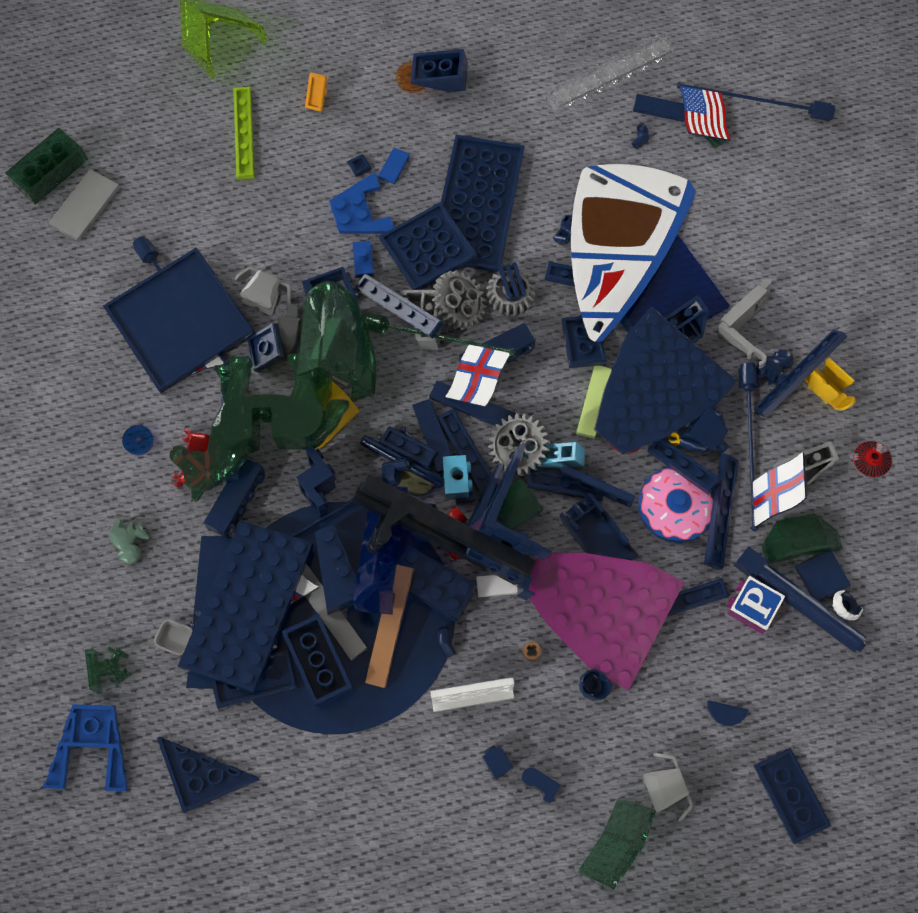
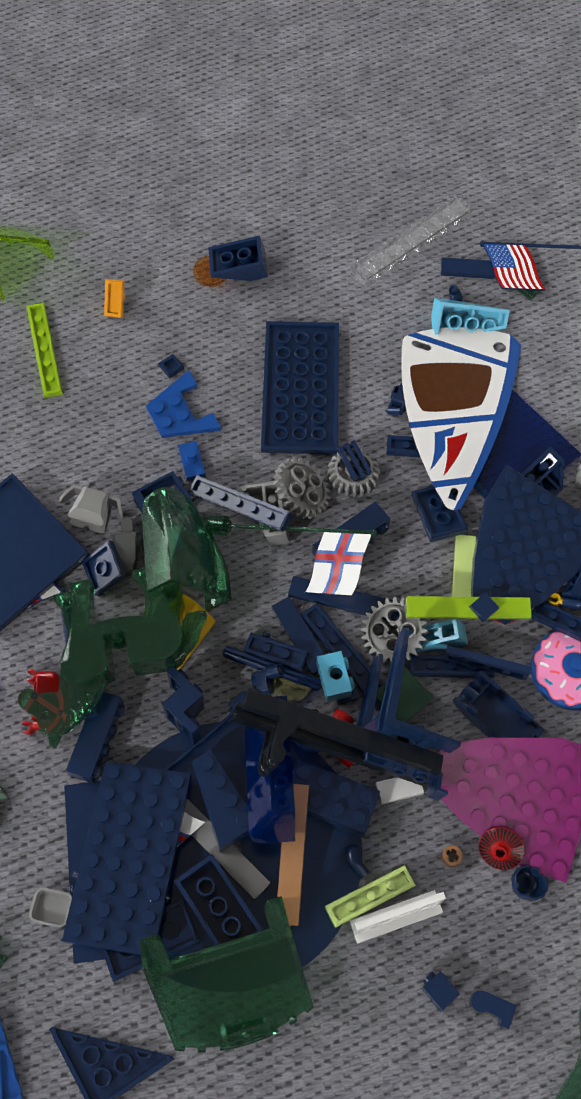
camera: 10 degrees left, 5 degrees down
(316, 730) = (232, 989): none -> clear green windscreen
(394, 165) = (207, 361): blue tile -> none
(427, 247) = (258, 438): dark blue tile -> none
(452, 673) = (369, 896): none -> yellowish green tile
(582, 646) = (504, 839): none -> dish
(589, 433) = (458, 607): none -> lime tile
(603, 435) = (484, 607): none -> dark blue tile
(647, 154) = (462, 314): none -> medium azure wedge

